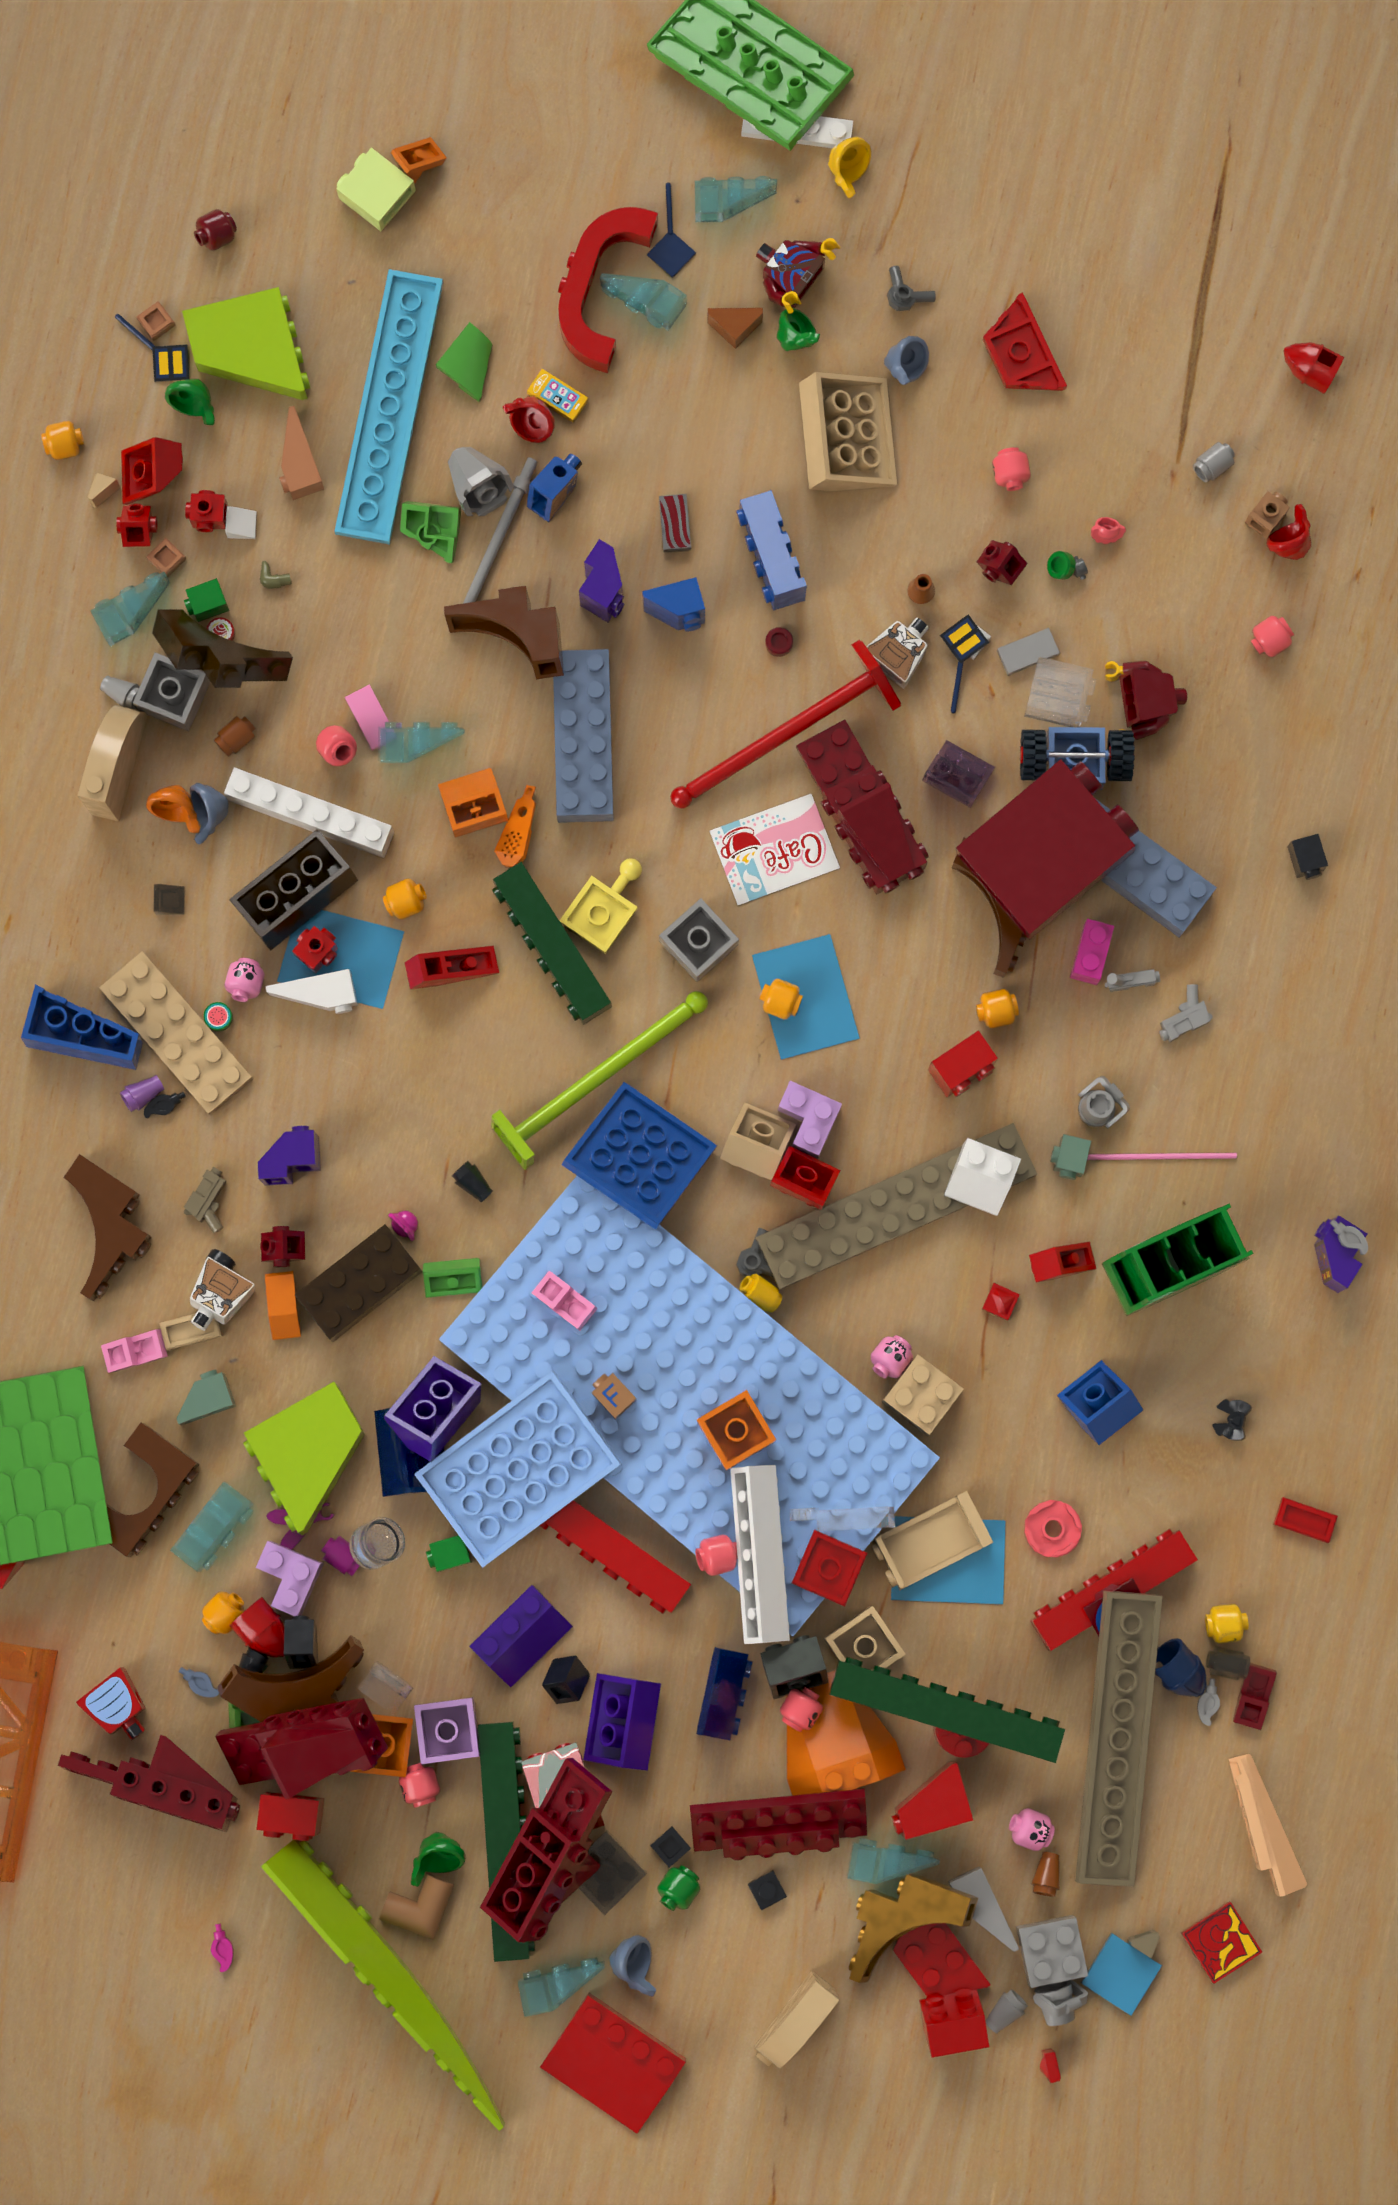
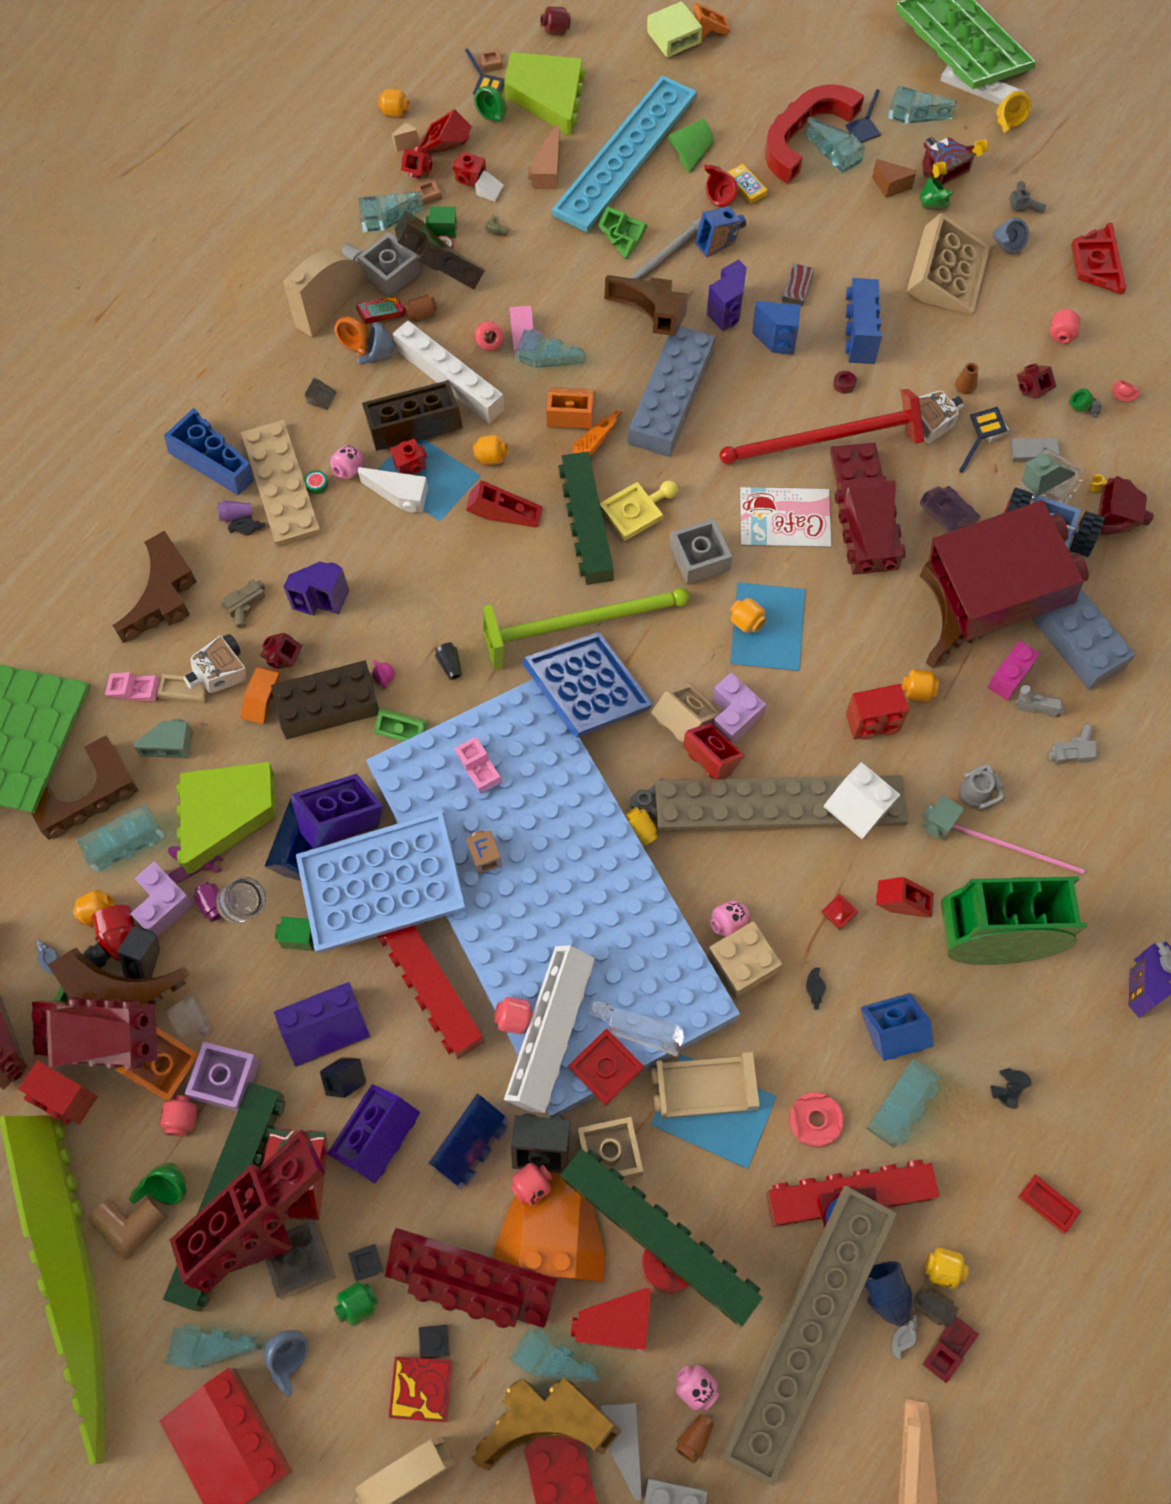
camera: 25 degrees right, 15 degrees down
(188, 756) = (380, 310): none -> red tile
(478, 481) = (668, 212): light grey cone -> none
(736, 1430) = (573, 916): orange brick -> none
(773, 1937) = (420, 1389): none -> tile
(1004, 1393) = (815, 987): none -> black piece
(1053, 697) = (1045, 473): none -> sand green slope
(1134, 1479) = (905, 1104): none -> clear light blue brick

